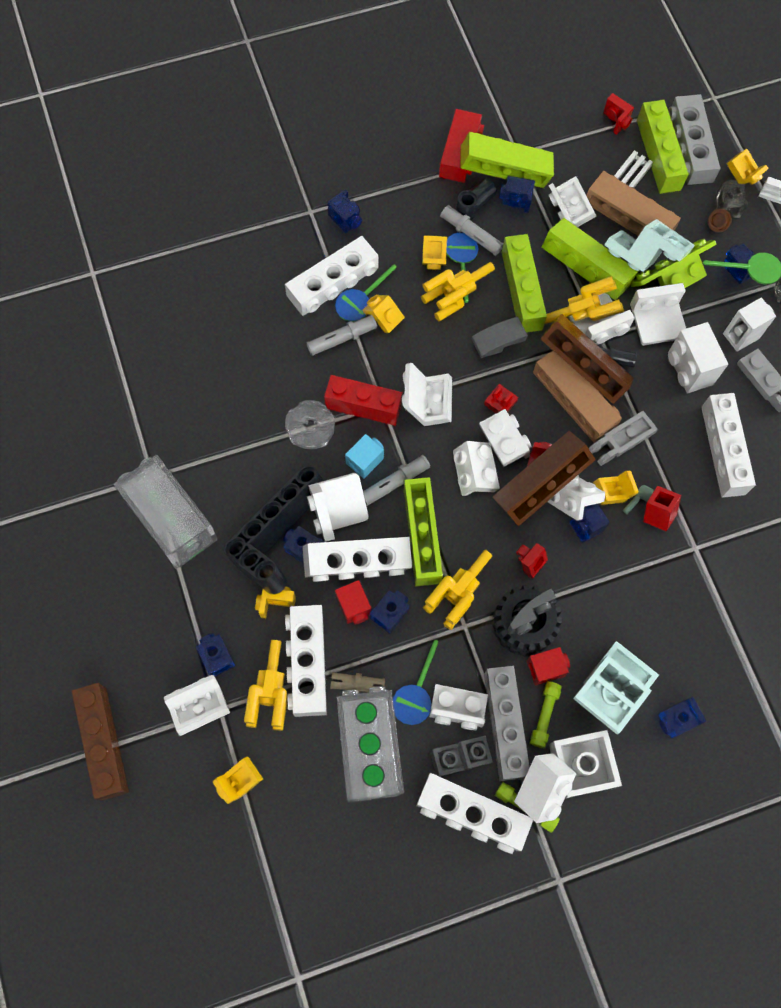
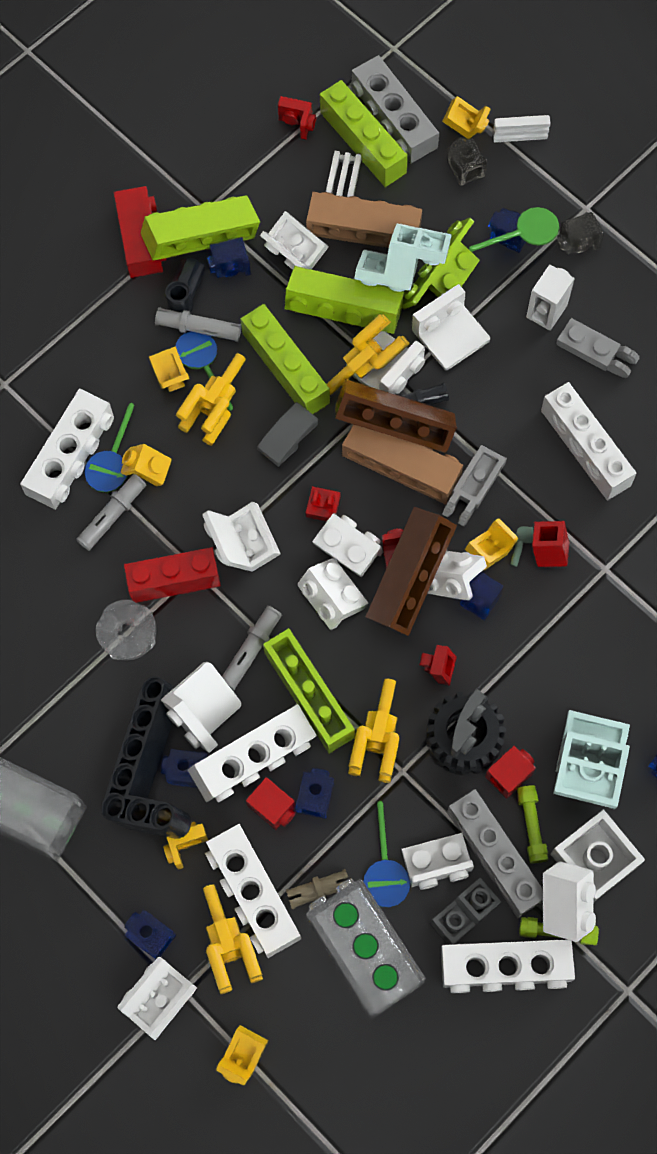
camera: 20 degrees left, 0 degrees up
(100, 742) = (71, 1089): reddish brown brick -> none
(344, 212) = (45, 368): clear blue brick -> none
(365, 455) = (204, 636): medium azure brick -> none
(697, 358) = (511, 360): white brick -> none
(719, 220) = (464, 190): reddish brown plate -> none

